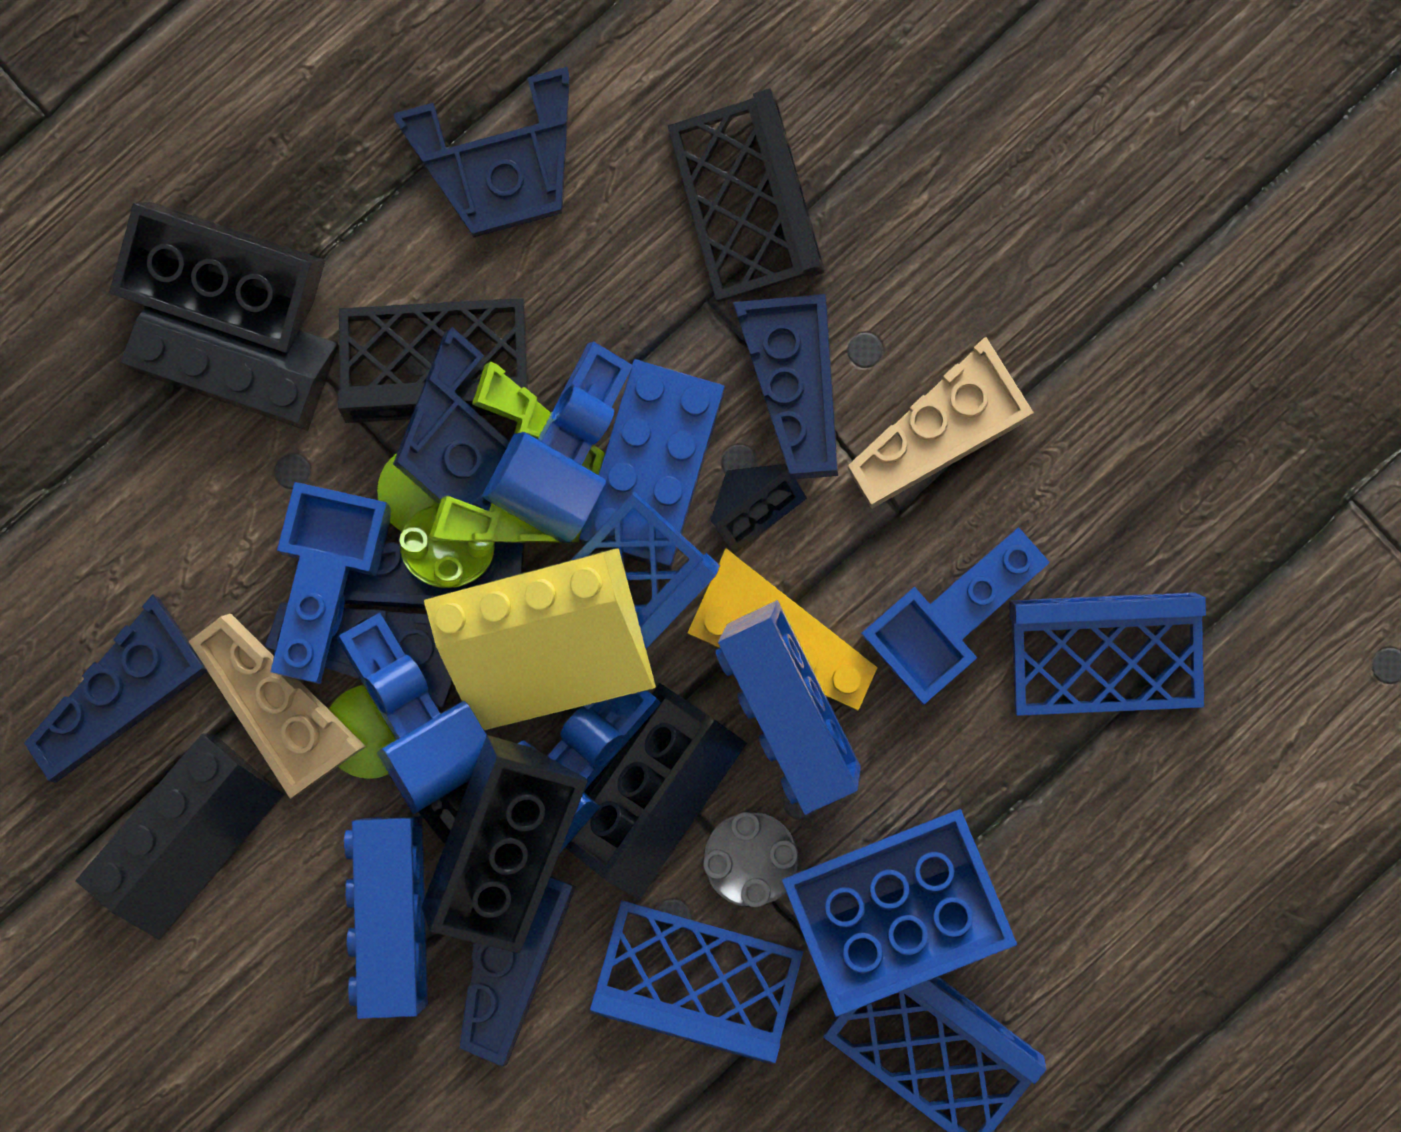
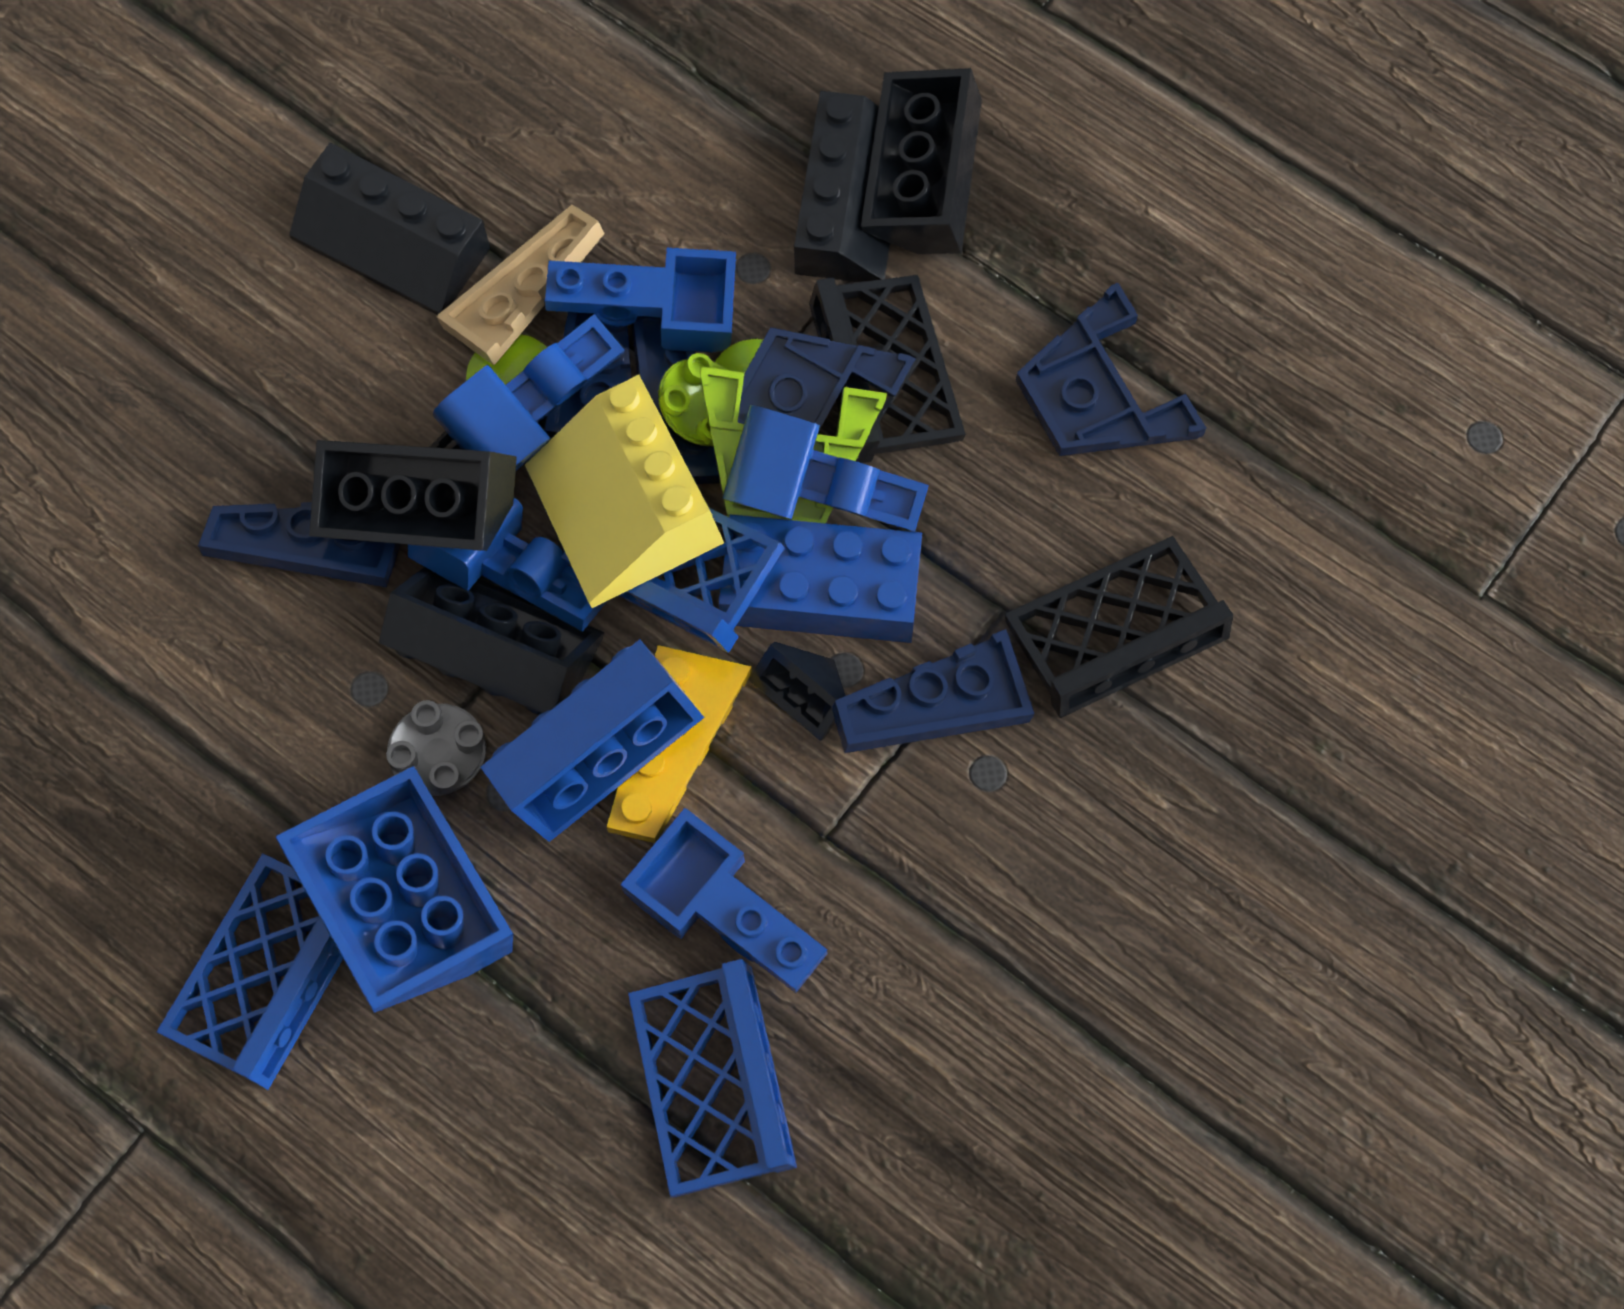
camera: 80 degrees right, 15 degrees down
(129, 683) = (515, 157): dark blue wing -> none
(388, 916) = (352, 401): blue brick -> none
(687, 1023) = (260, 710): blue fence -> none
(958, 416) = (932, 872): tan wing -> none

